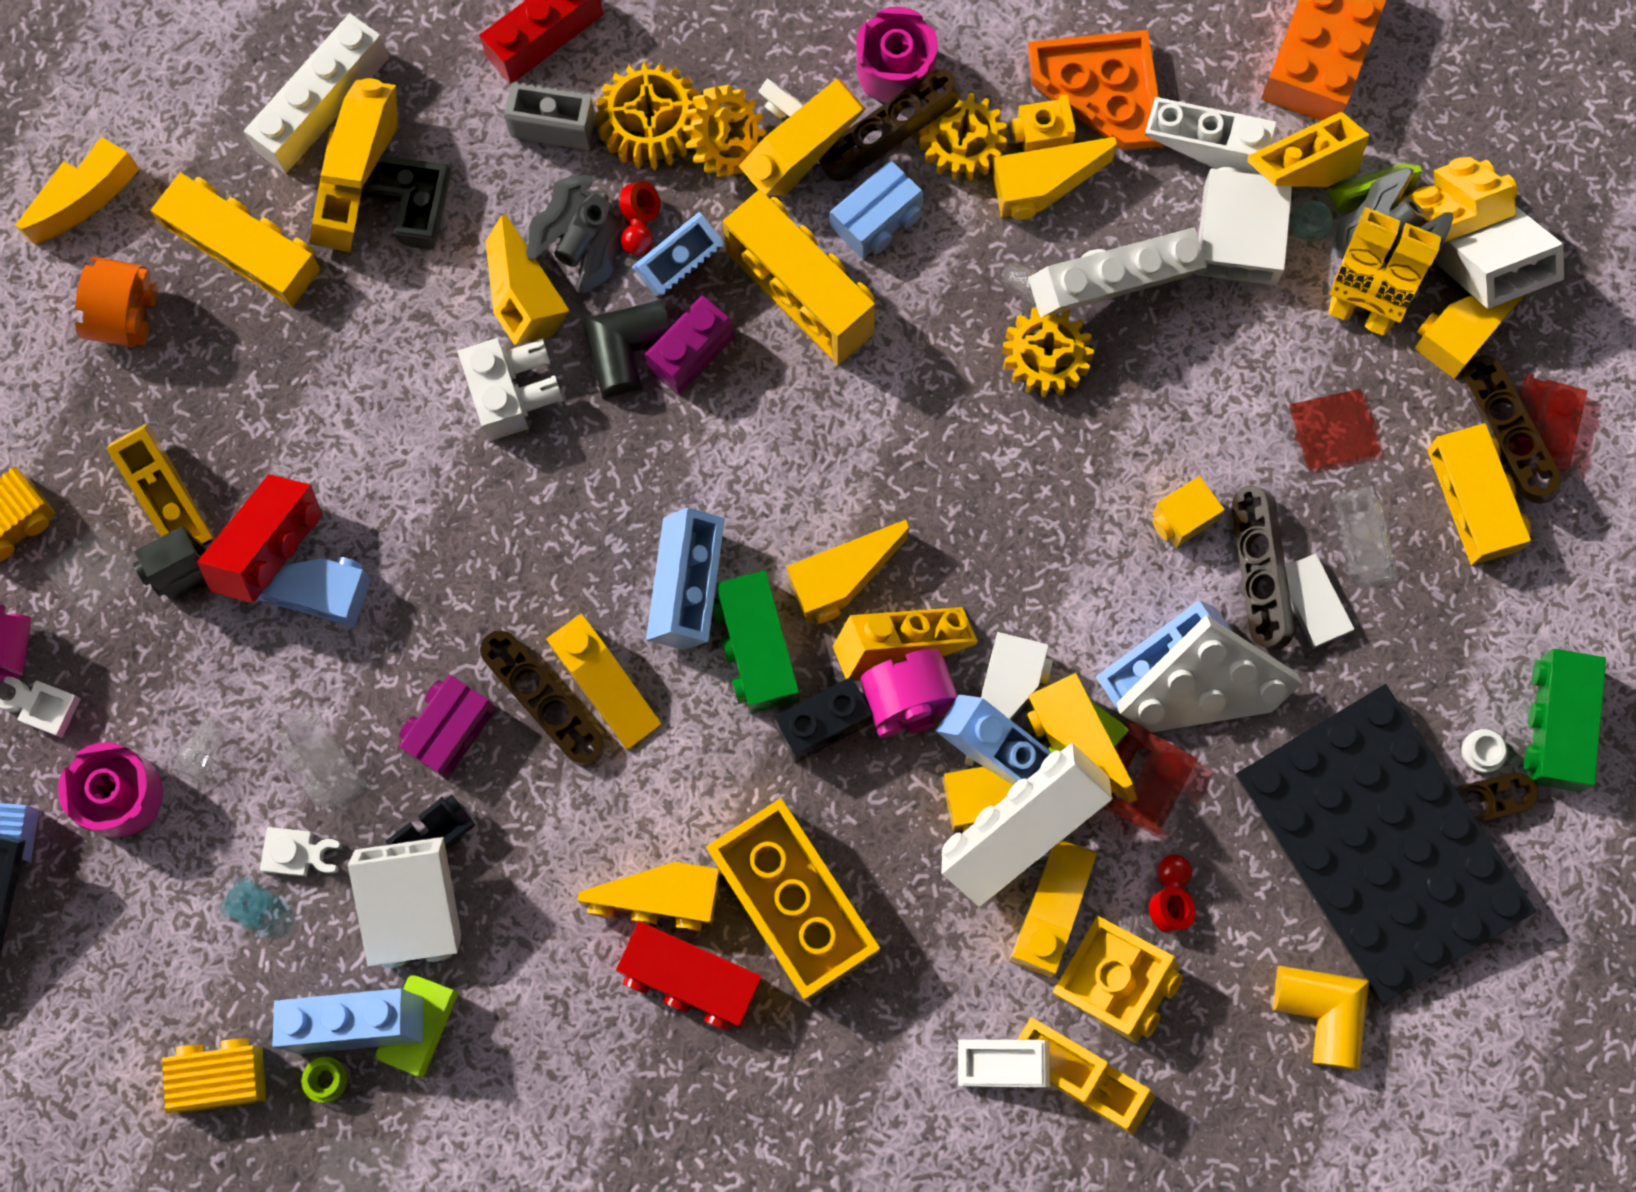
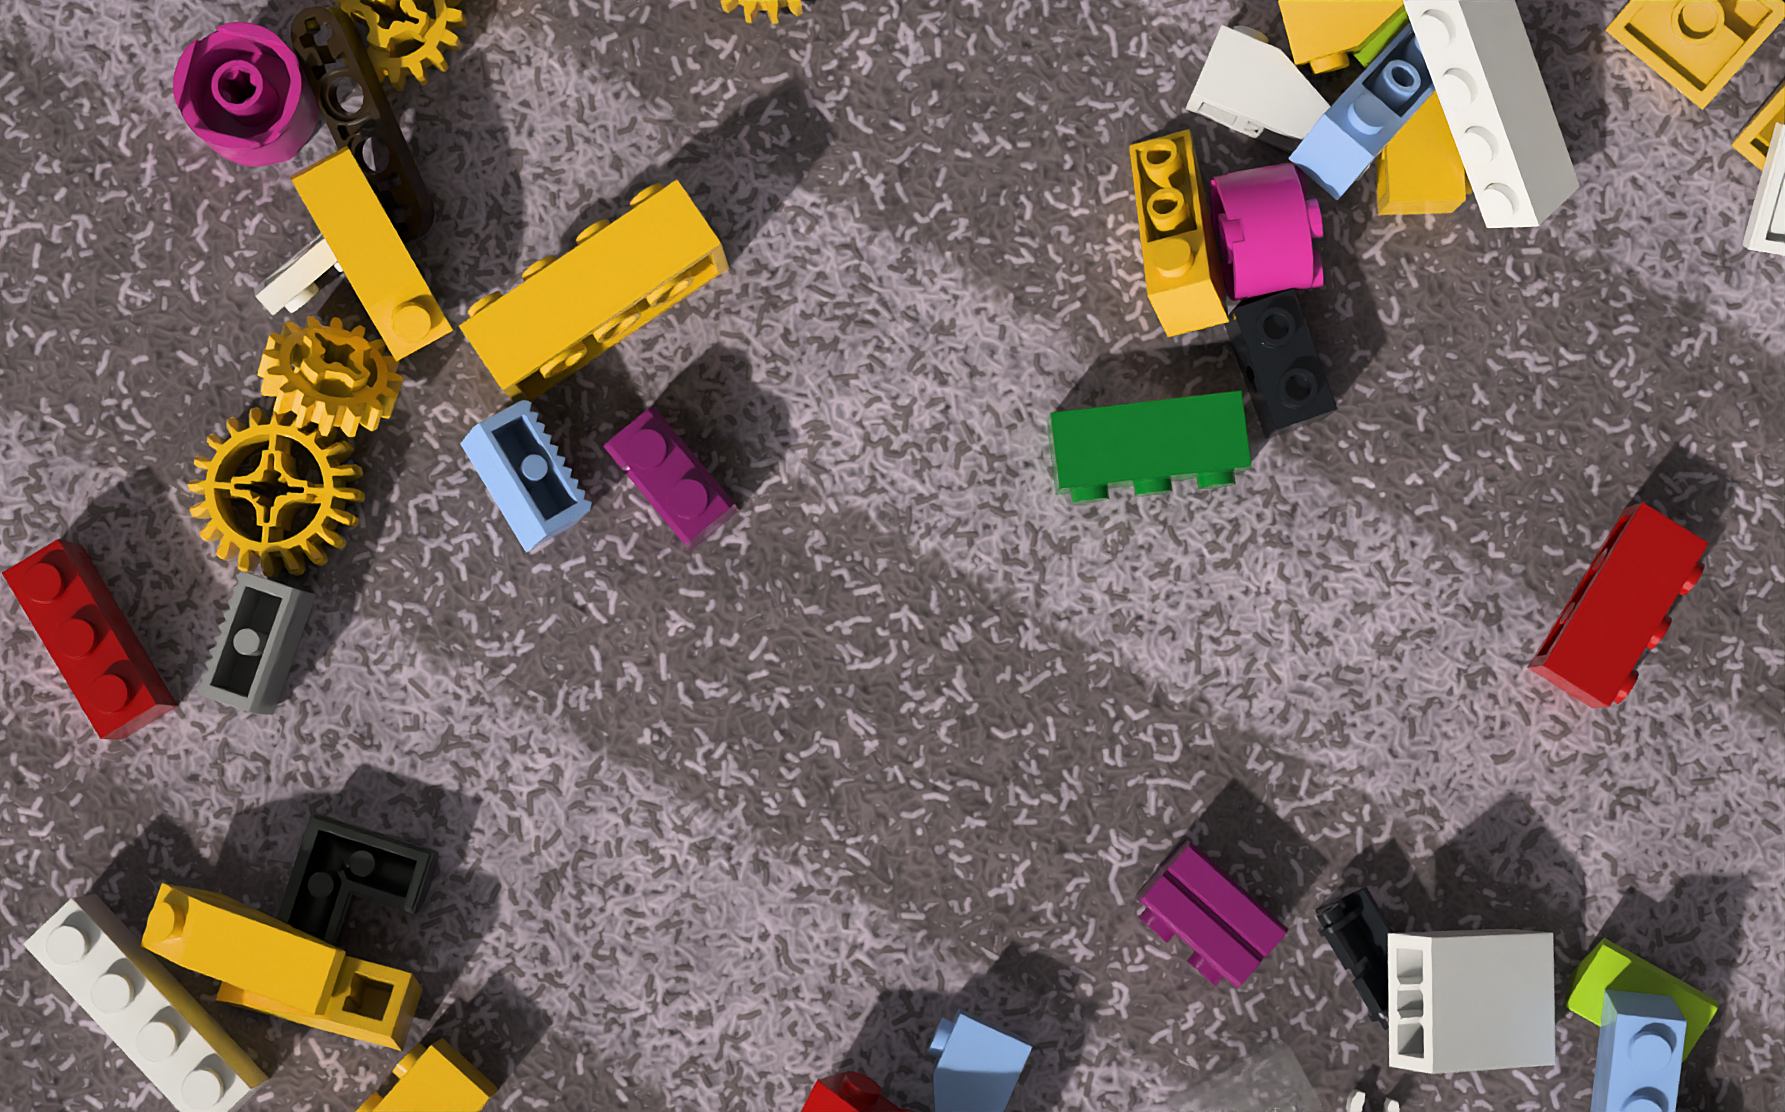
camera: 85 degrees left, 10 degrees up
(496, 397) = (682, 788): white brick -> none
(520, 288) = (532, 728): yellow slope -> none
(544, 696) = (1185, 776): dark brown beam -> none
(585, 228) = (453, 613): dark grey piece -> none
(603, 681) = (1174, 675): yellow slope -> none
(616, 336) = (633, 593): pearl dark grey brick -> none
(639, 205) = (429, 526): red plate -> none
(665, 892) = (1496, 628): yellow slope -> none
(685, 579) = (1043, 533): light blue brick -> none
(793, 900) = (1539, 443): yellow brick -> none
(837, 575) = (1064, 309): yellow slope -> none
(877, 210) = (495, 167): light blue brick -> none
(1053, 908) = (1609, 94): yellow slope -> none

